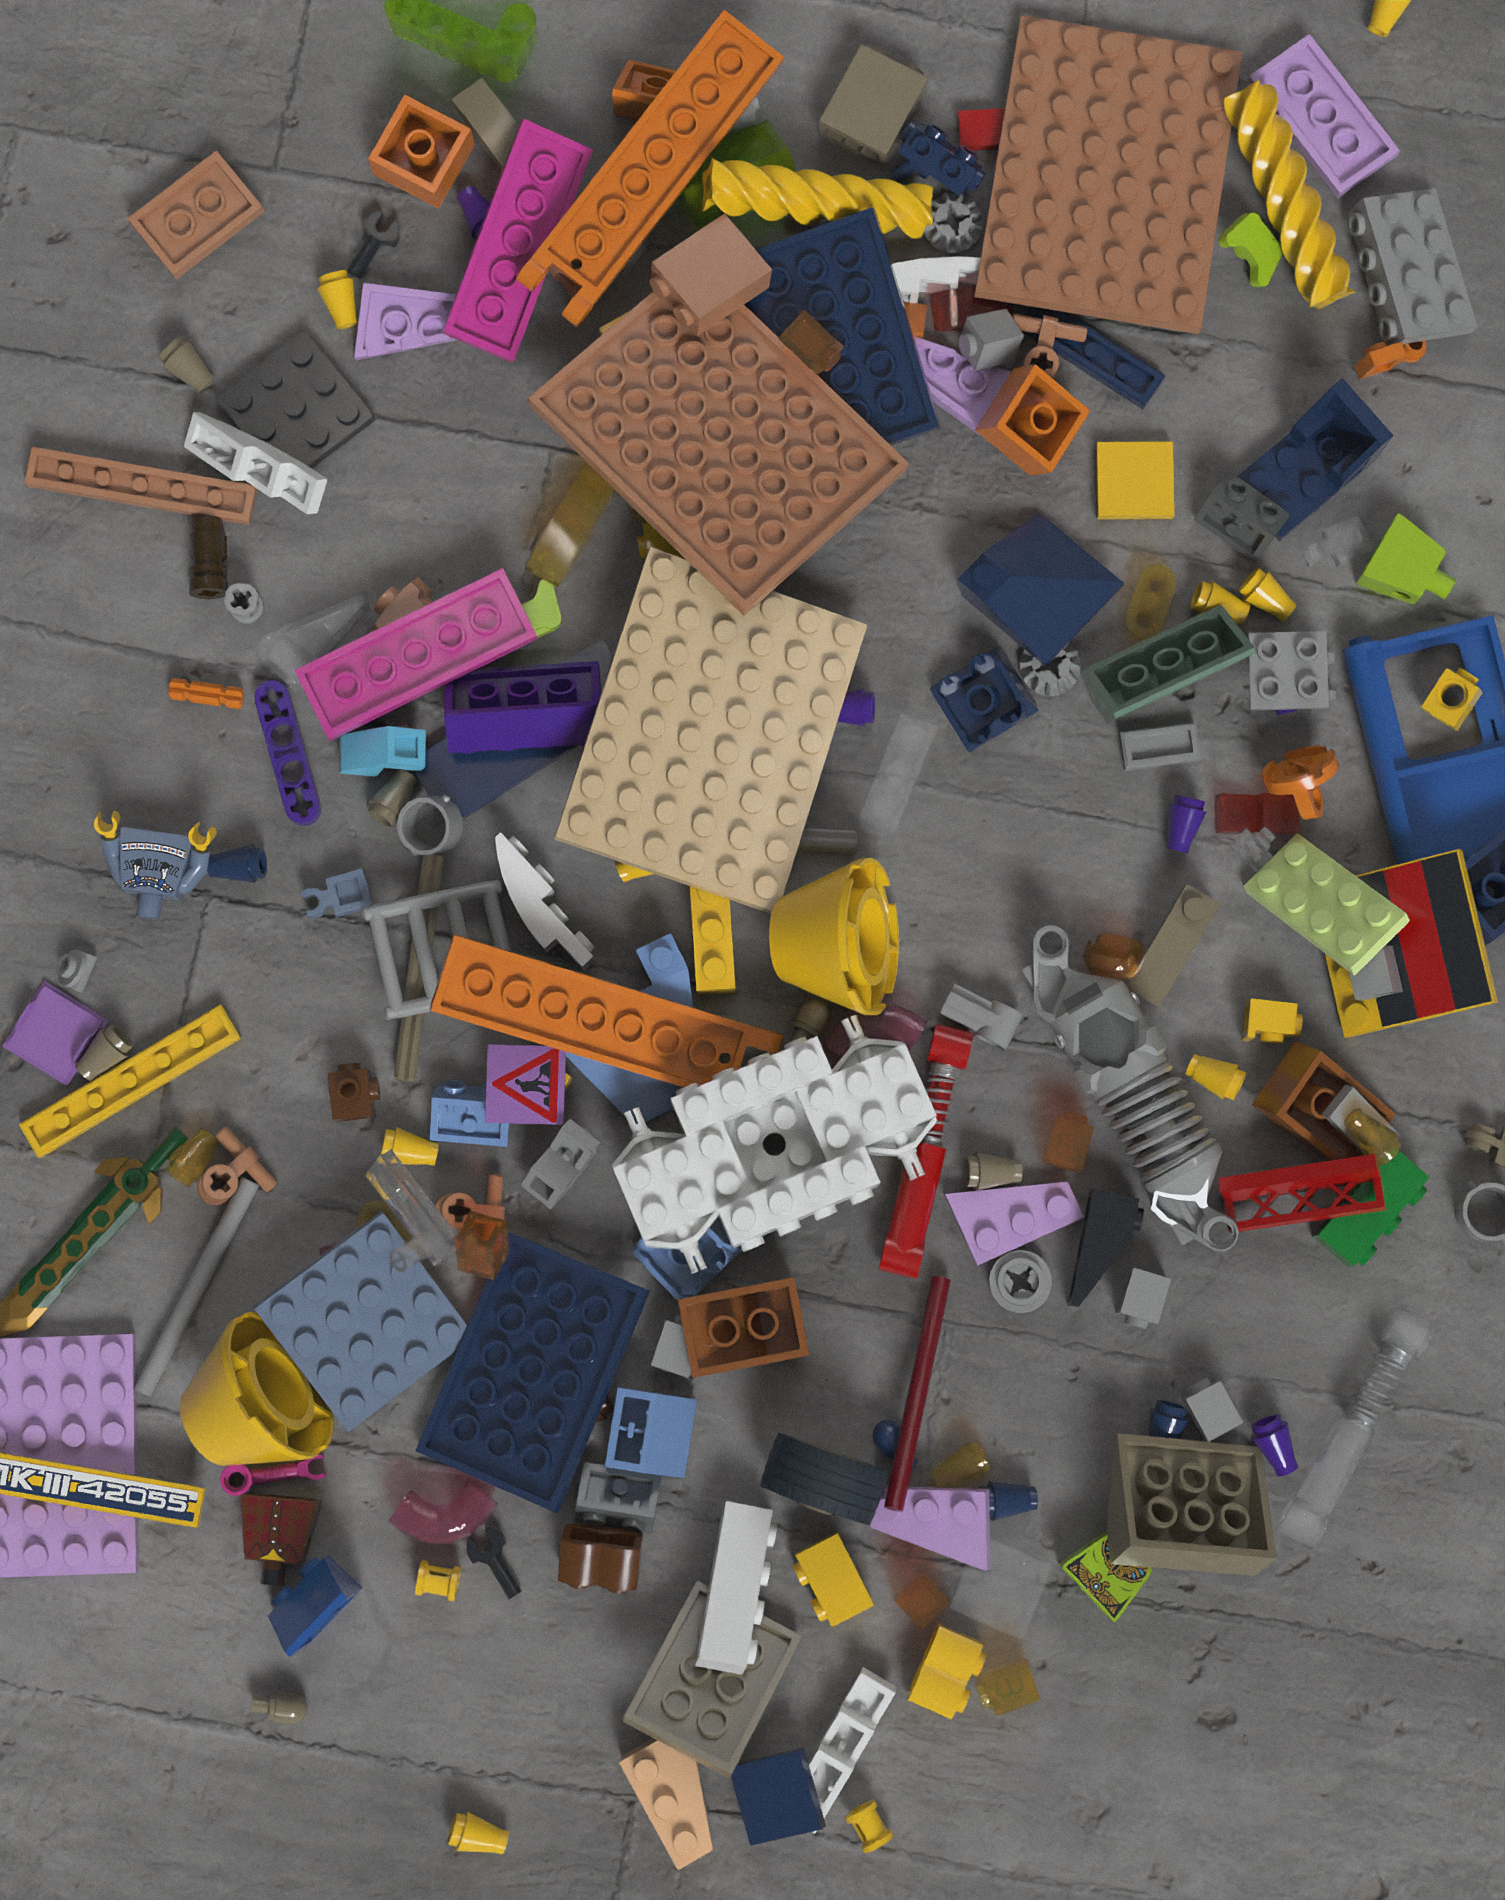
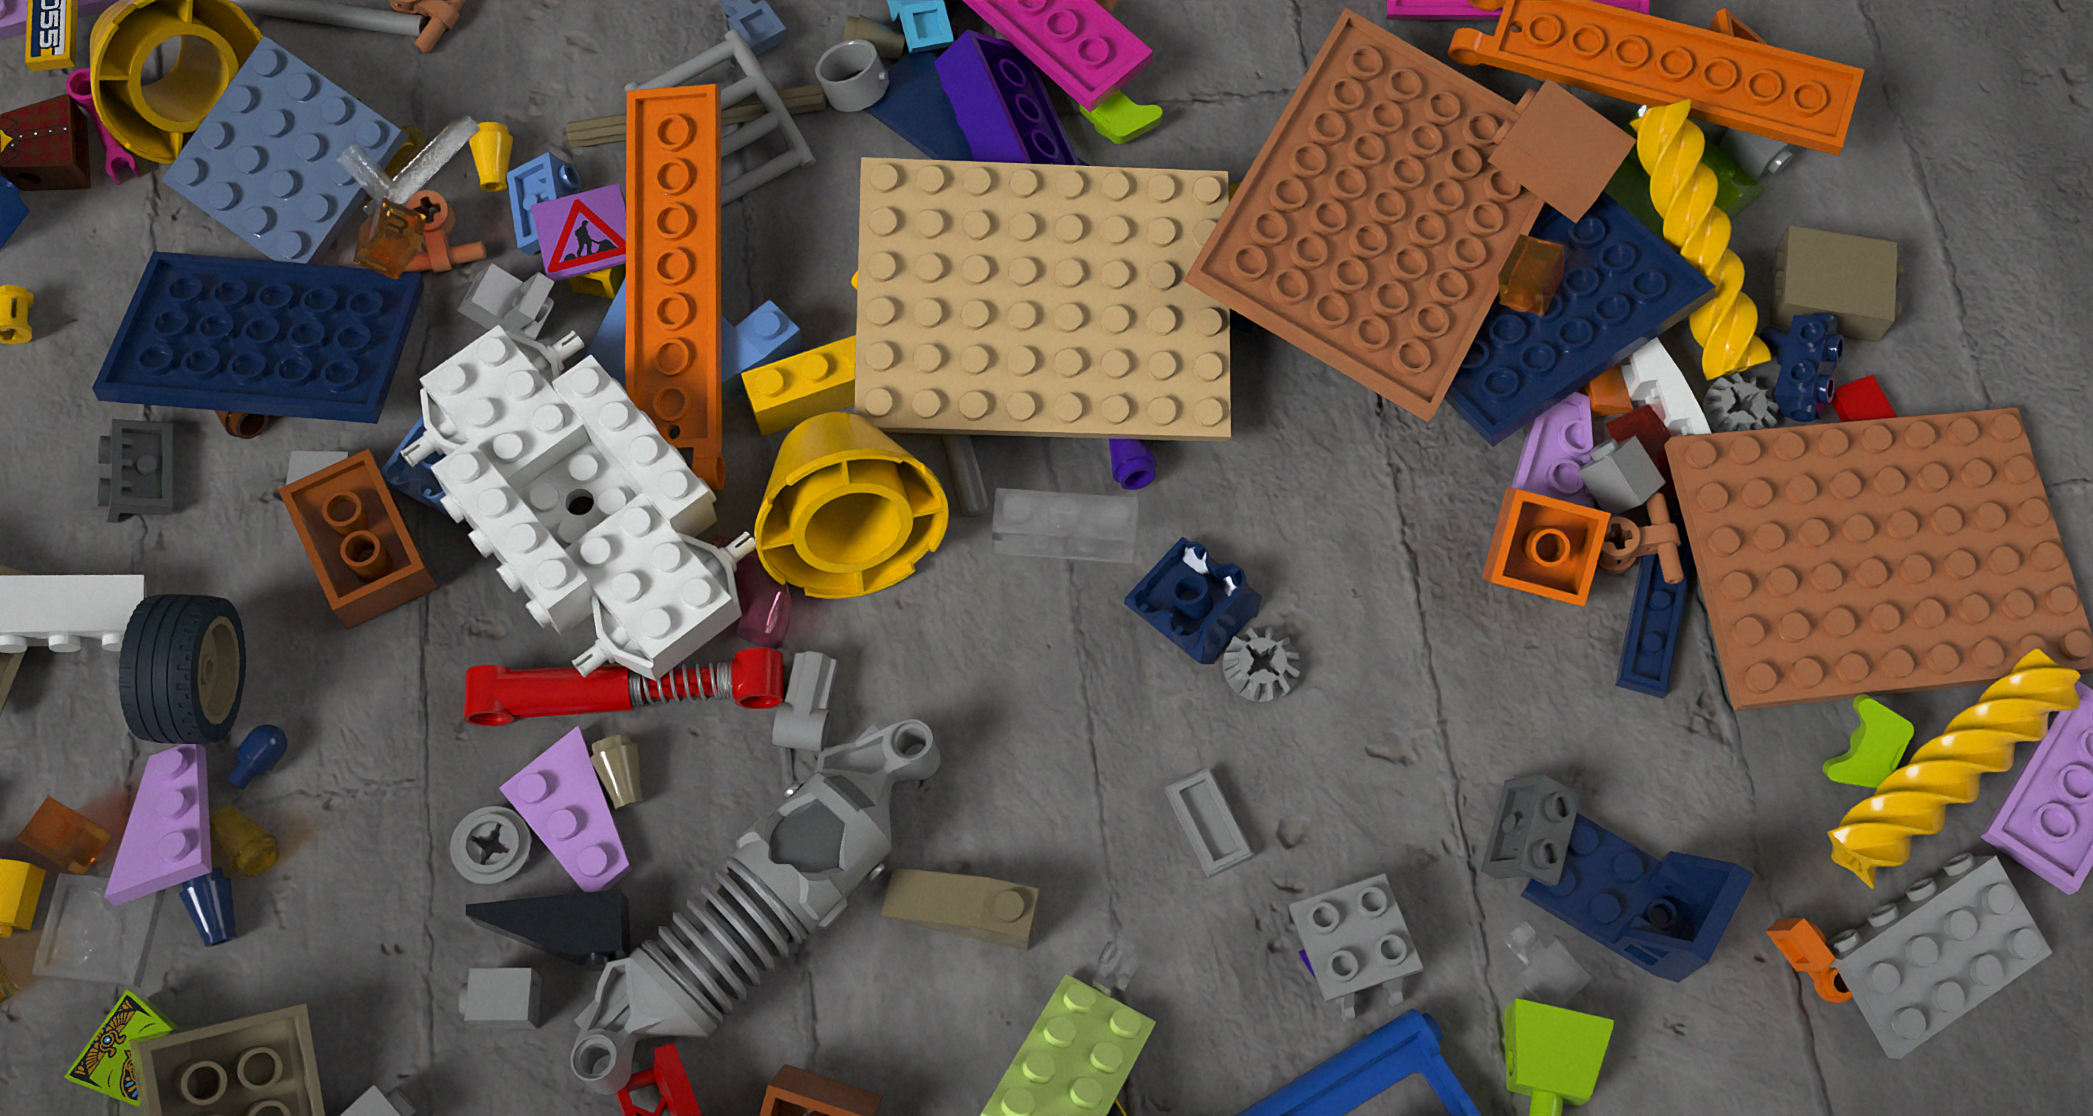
camera: 70 degrees right, 15 degrees down
(353, 1093) = (538, 86): reddish brown brick -> none
(444, 1522) = (76, 299): clear pink cylinder -> none
(494, 1561) = (49, 365): black bar -> none
(529, 892) = (801, 193): white slope -> none
(571, 526) = (1218, 116): clear yellow slope -> none
(600, 1557) = (59, 466): reddish brown brick -> none
(650, 1432) = (215, 475): medium blue slope -> none
(811, 1019) = (739, 517): dark tan cylinder -> none
(833, 1579) = (73, 730): yellow brick -> none
(917, 1394) = (317, 757): dark red piece -> none
(1038, 587) = (1350, 616): dark blue slope -> none
(1068, 1142) = (675, 849): clear orange brick -> none
(1114, 956) = (922, 836): clear orange hair -> none
(1135, 480) = (1524, 697): yellow tile -> none
(1150, 603) = (1380, 755): clear yellow plate -> none
(1166, 663) = (1307, 787): sand green slope -> none
(1167, 1420) = (347, 1076): dark blue cone -> none
(1183, 822) = (1122, 875): dark purple cone -> none
(1212, 595) = (1411, 837): yellow cone -> none
(1217, 1076) = (811, 1011): yellow cone -> none
(1254, 812) = (1165, 966): clear red slope -> none
(1266, 593) = (1445, 893): yellow cone -> none
(1271, 1020) = (901, 1057): yellow brick -> none
(1302, 775) = (1224, 1002): orange tile -> none

